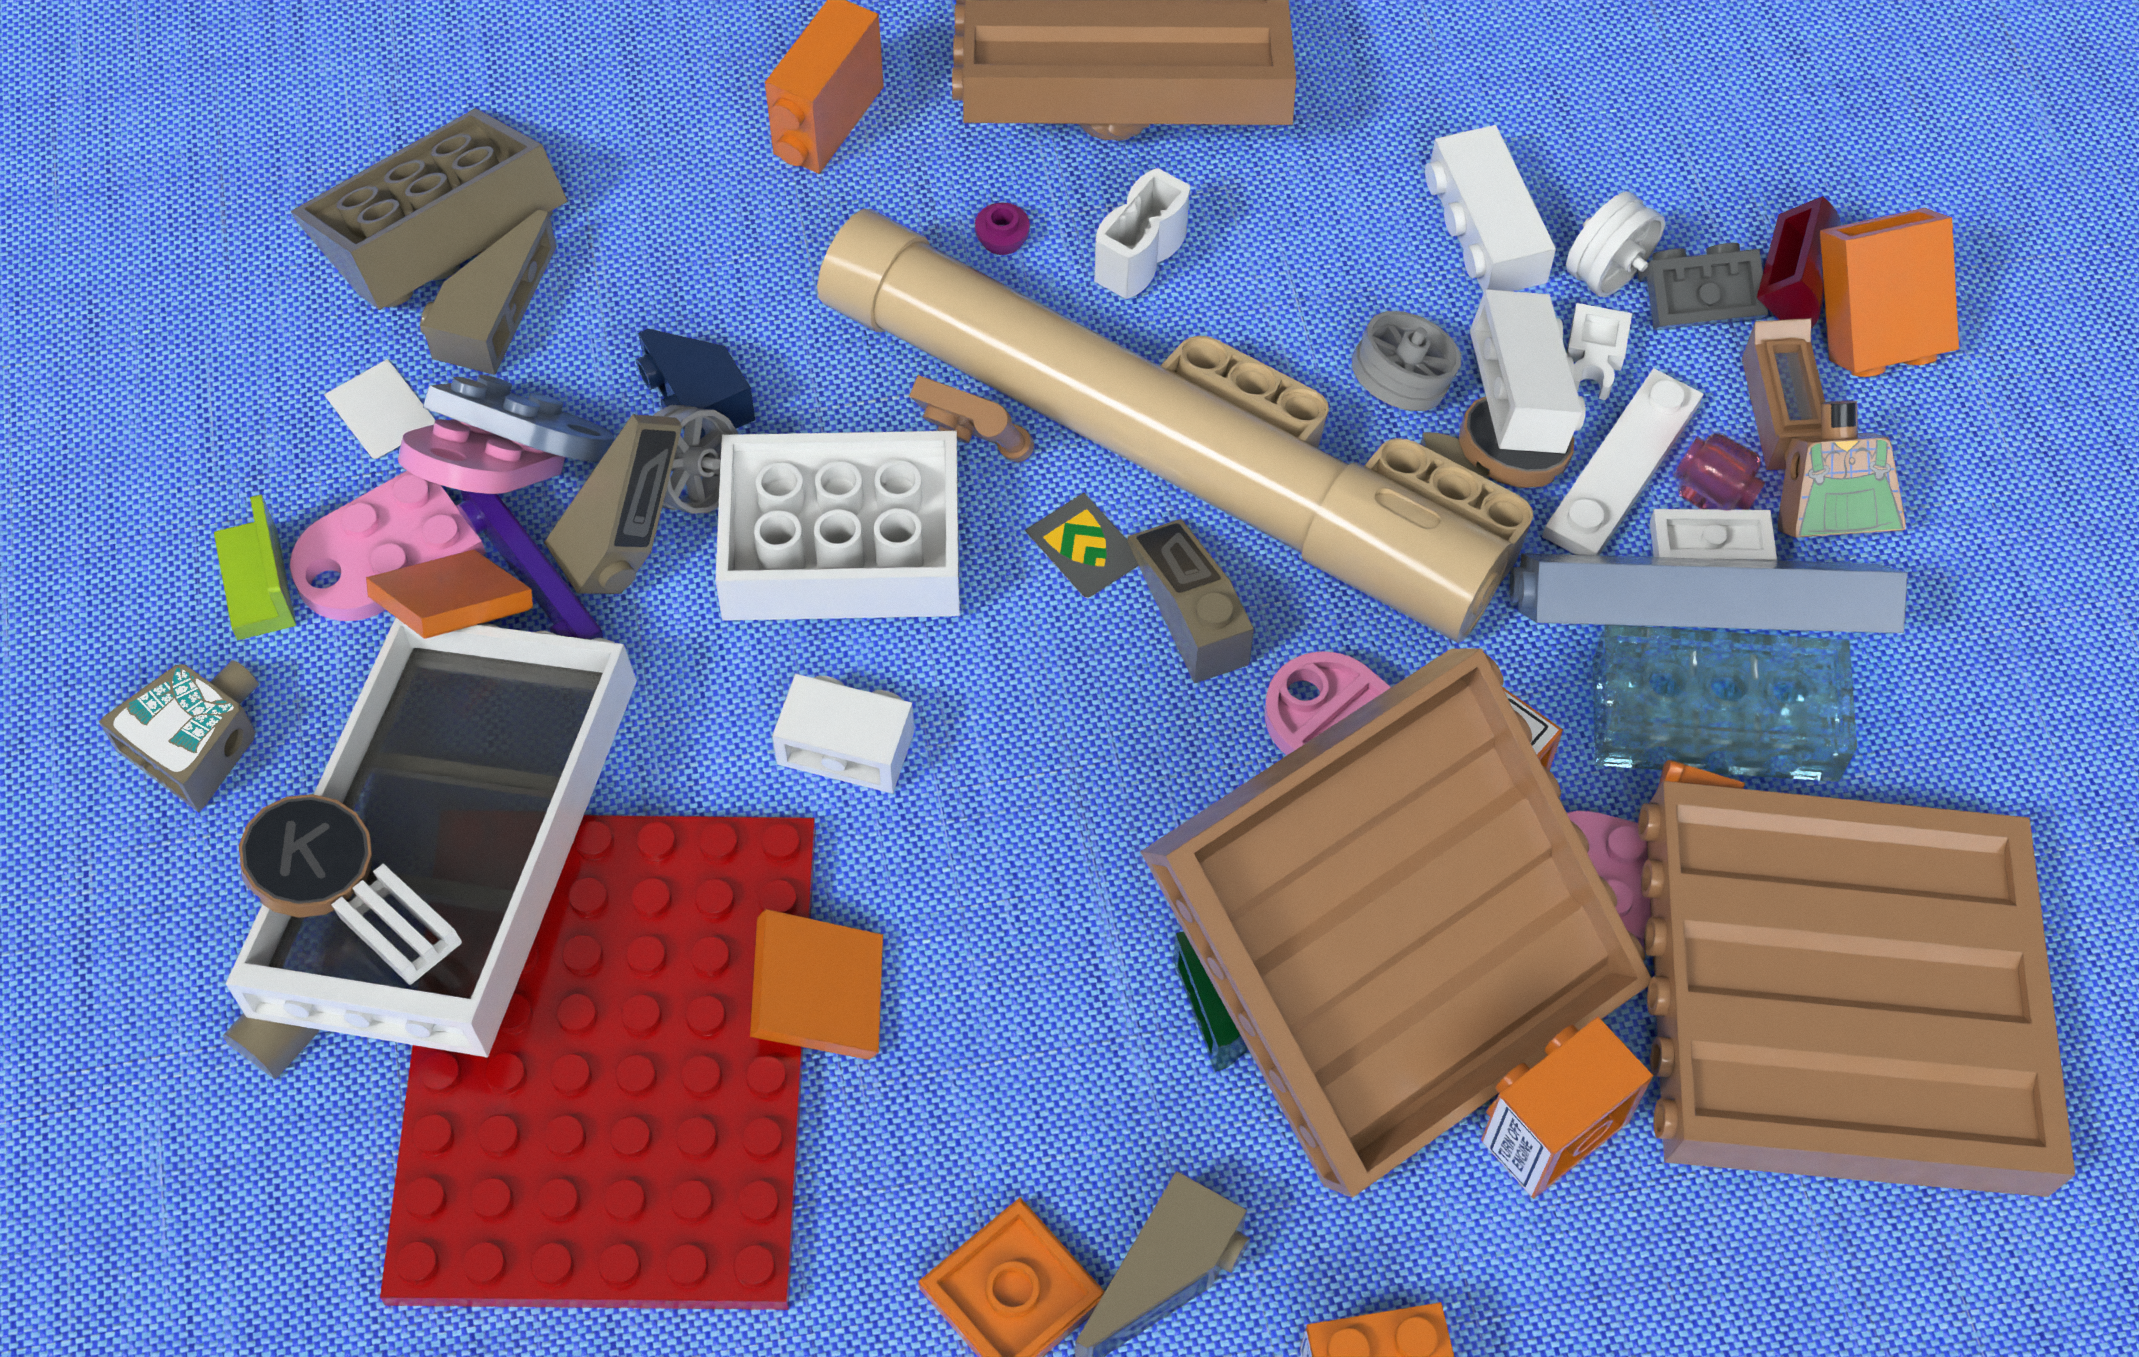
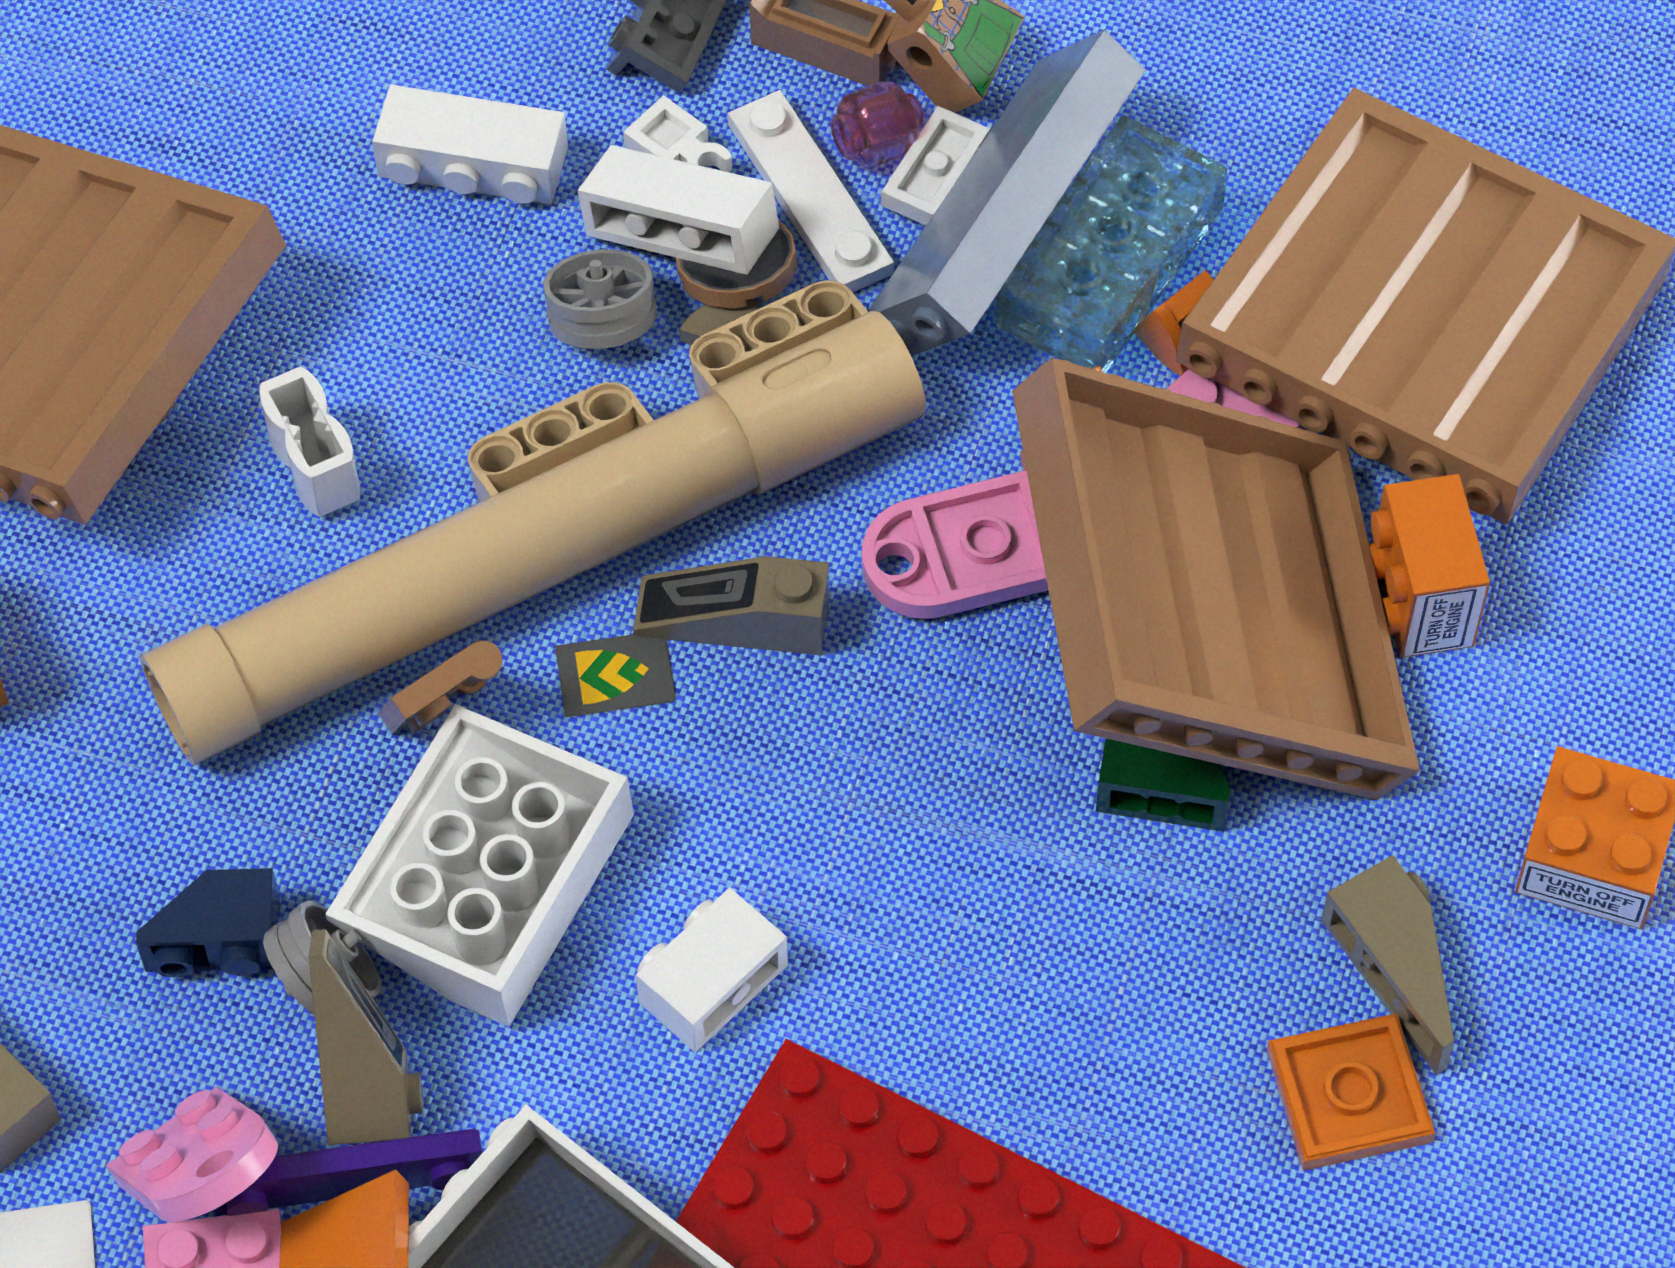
camera: 60 degrees left, 0 degrees up
(528, 421) = (169, 1098): sand blue plate -> none
(817, 985) = (972, 1109): orange tile -> none
(1002, 239) = (201, 579): magenta plate -> none
(1615, 244) = (587, 64): white wheel -> none

